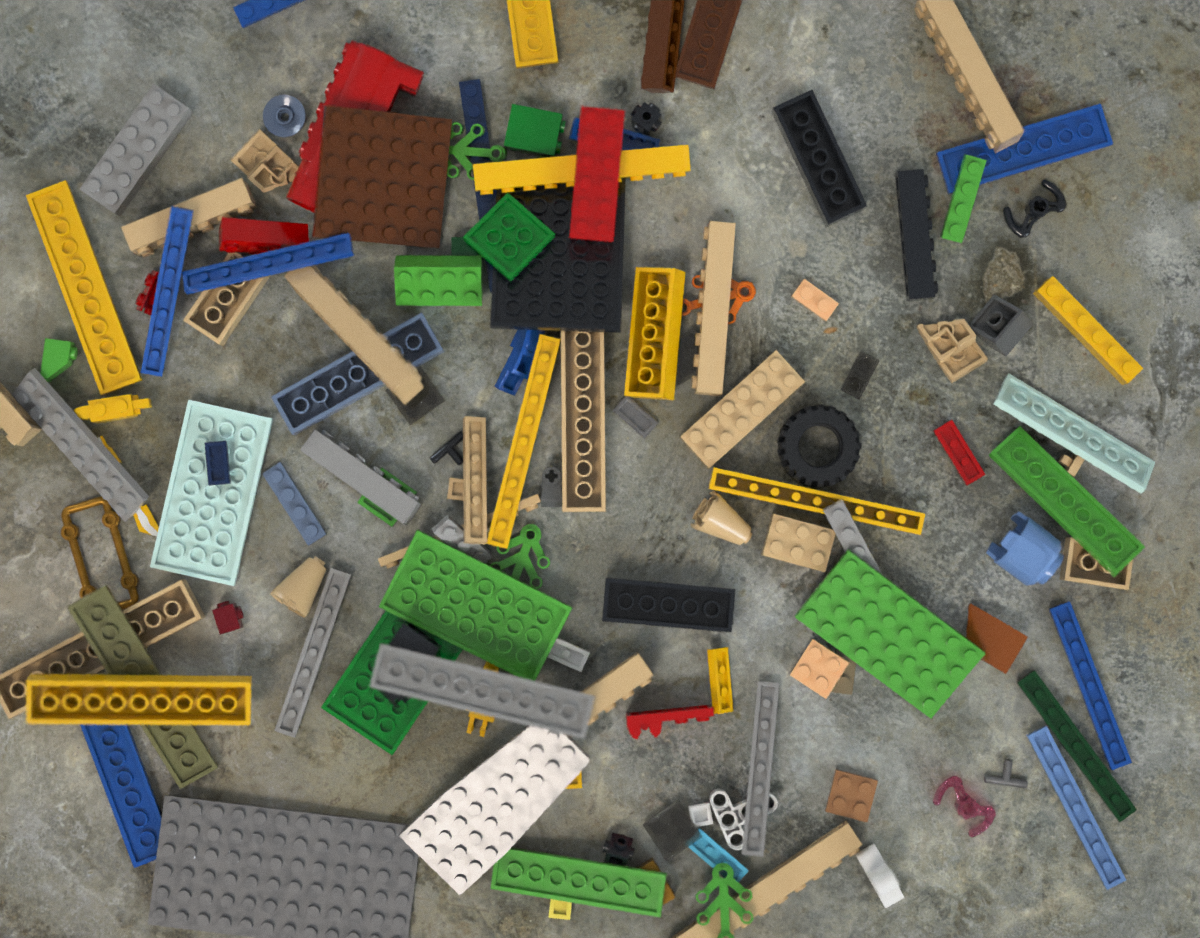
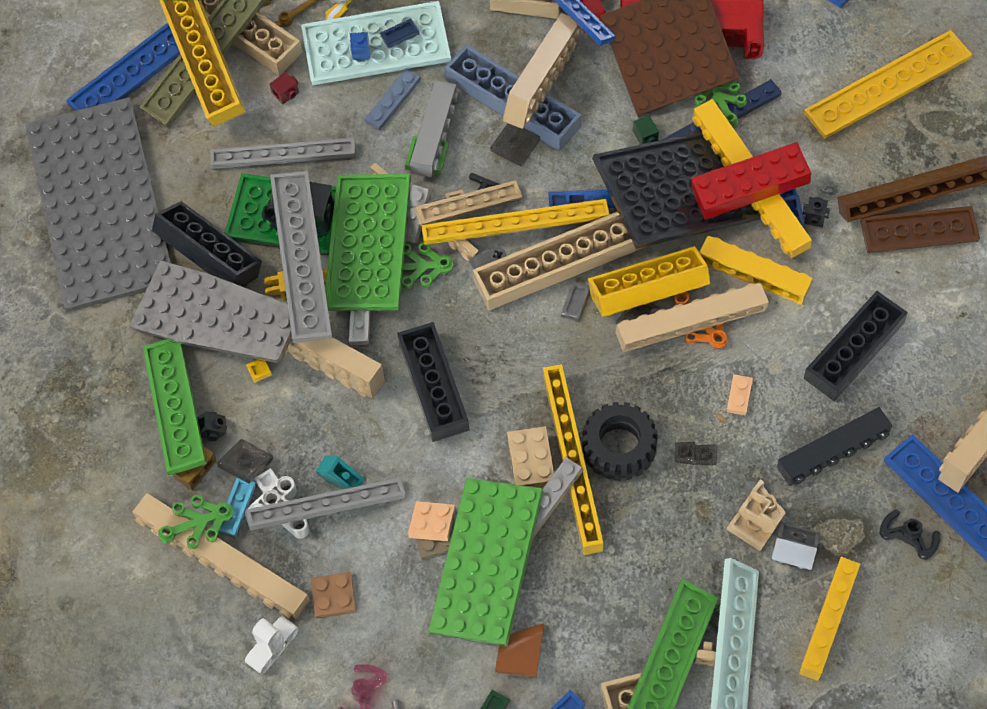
camera: 70 degrees right, 25 degrees down
(217, 515) = (360, 46): none -> blue brick
(301, 586) = (330, 123): tan cone -> none
(402, 780) = (206, 244): none -> black brick
(438, 280) = (611, 117): bright green brick -> none
(509, 237) = (670, 145): green plate -> none
(534, 131) = (760, 134): green brick -> none
(560, 909) = (145, 405): light yellow plate -> none
(653, 718) = (336, 413): red hinge -> none
(684, 215) = (755, 269): none -> yellow brick
(720, 680) = (387, 448): yellow plate -> none
(721, 520) = (521, 393): tan cone -> none
(728, 740) = (338, 473): none -> teal slope
(742, 409) = (621, 373): tan brick -> none
(959, 452) = (670, 558): red plate -> none
(963, 198) = (886, 469): bright green plate -> none
(1028, 552) = (610, 641): medium blue piece -> none

